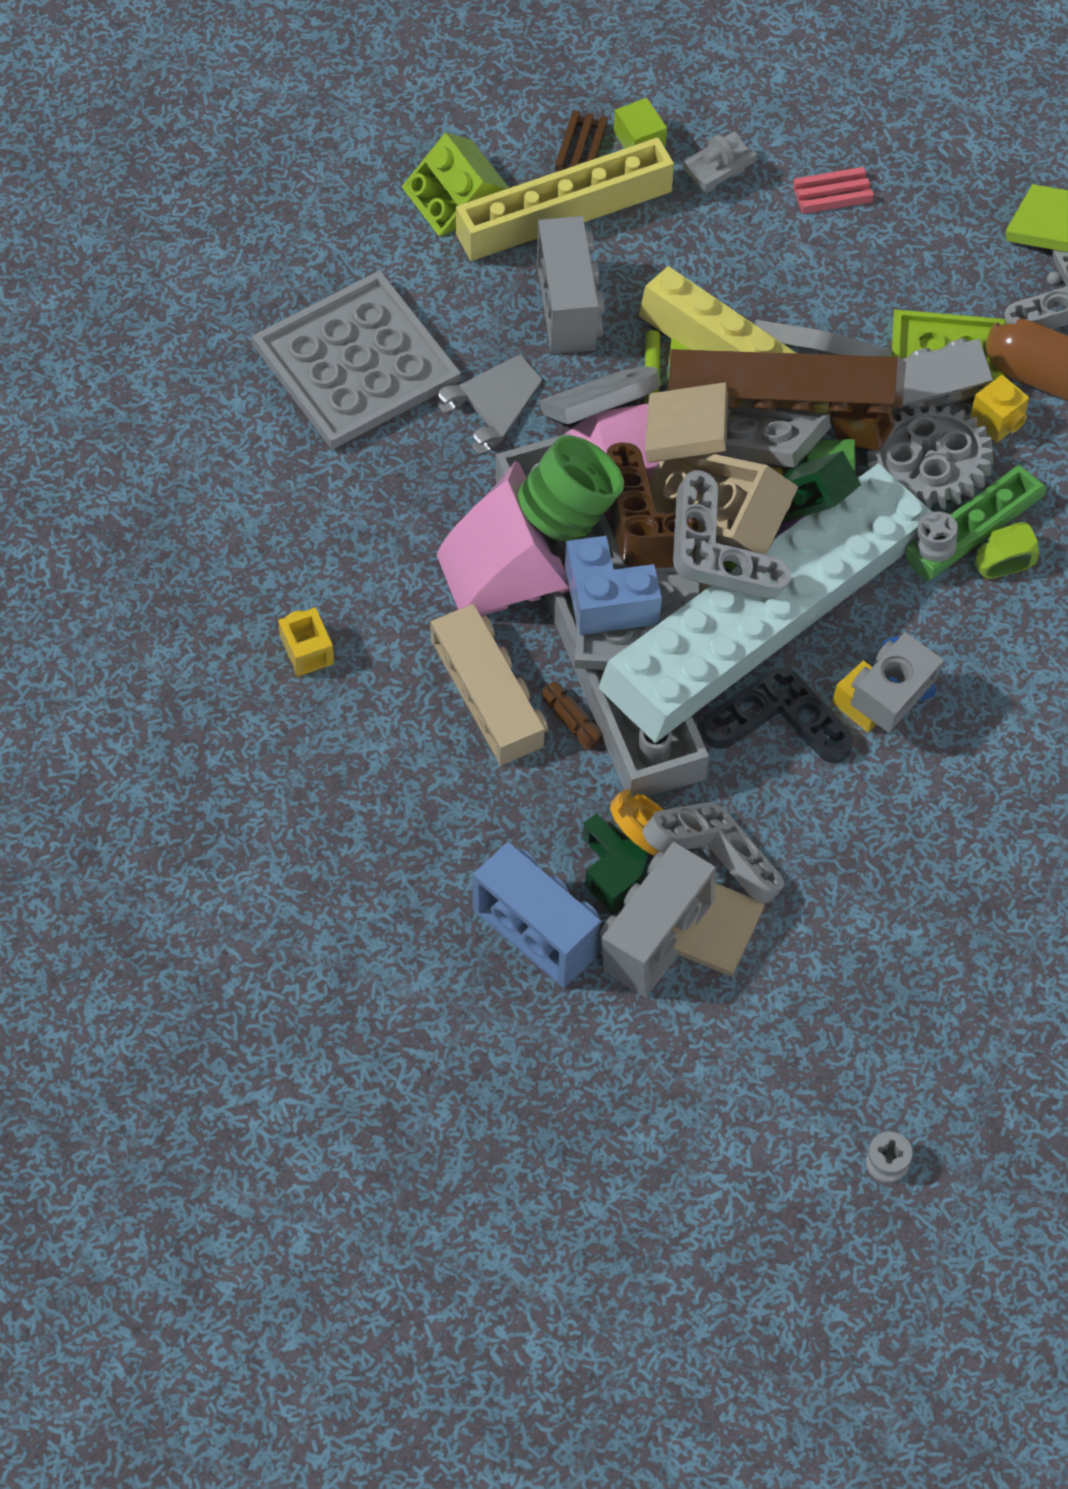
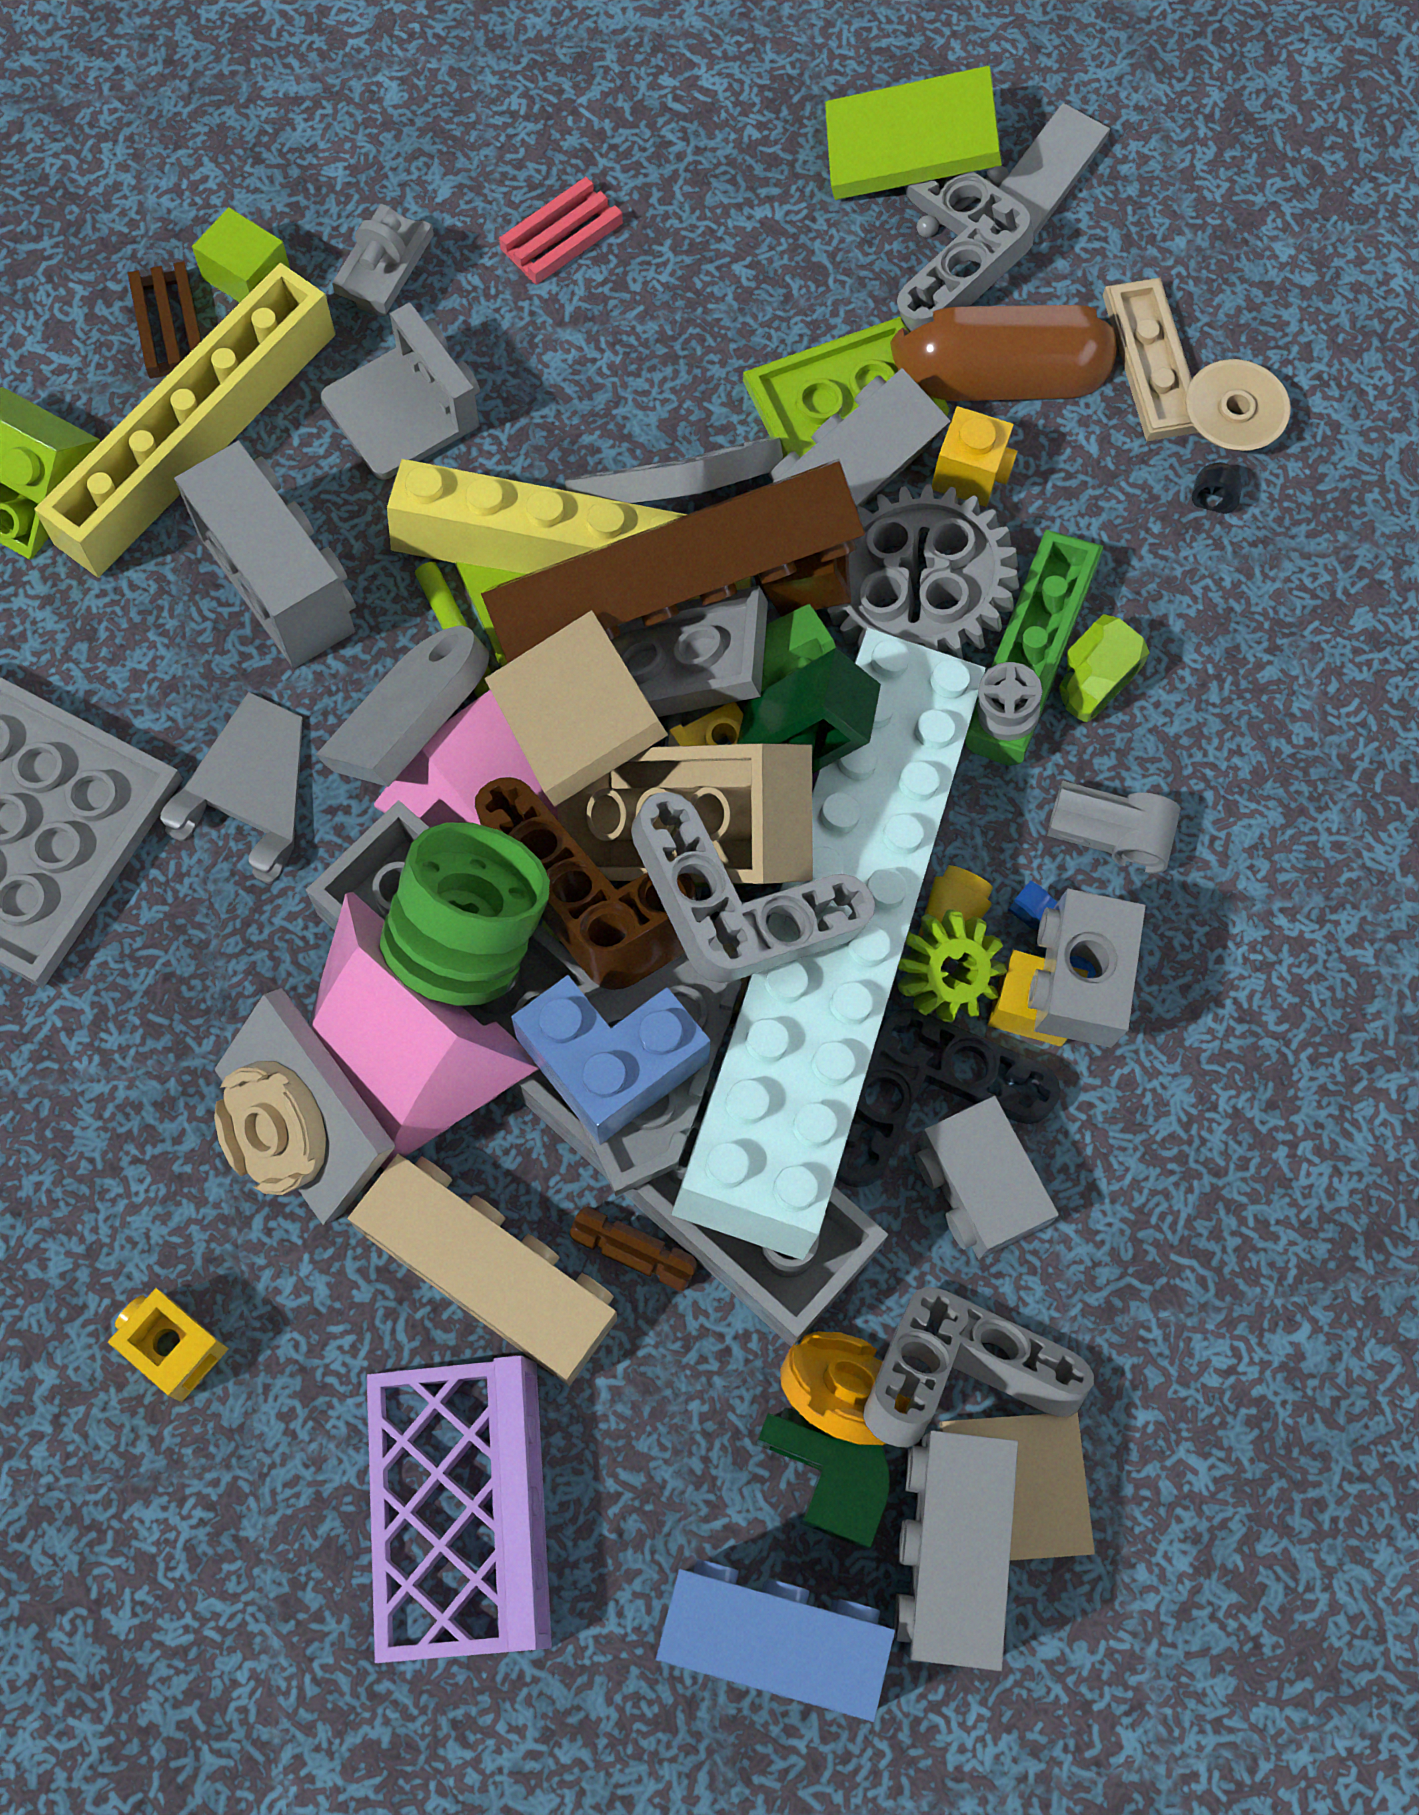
camera: 30 degrees left, 10 degrees up
(414, 562) = (270, 1127): none -> tan tile
(436, 560) = (354, 1136): none -> light grey tile
(438, 808) = (516, 1517): none -> lavender fence
(691, 241) = (405, 399): none -> light grey bracket
(781, 768) = (984, 1178): none -> light grey brick
(826, 639) = (963, 943): none -> lime gear
(845, 634) = (958, 891): none -> yellow cone
(972, 639) = (1130, 828): none -> light grey piece

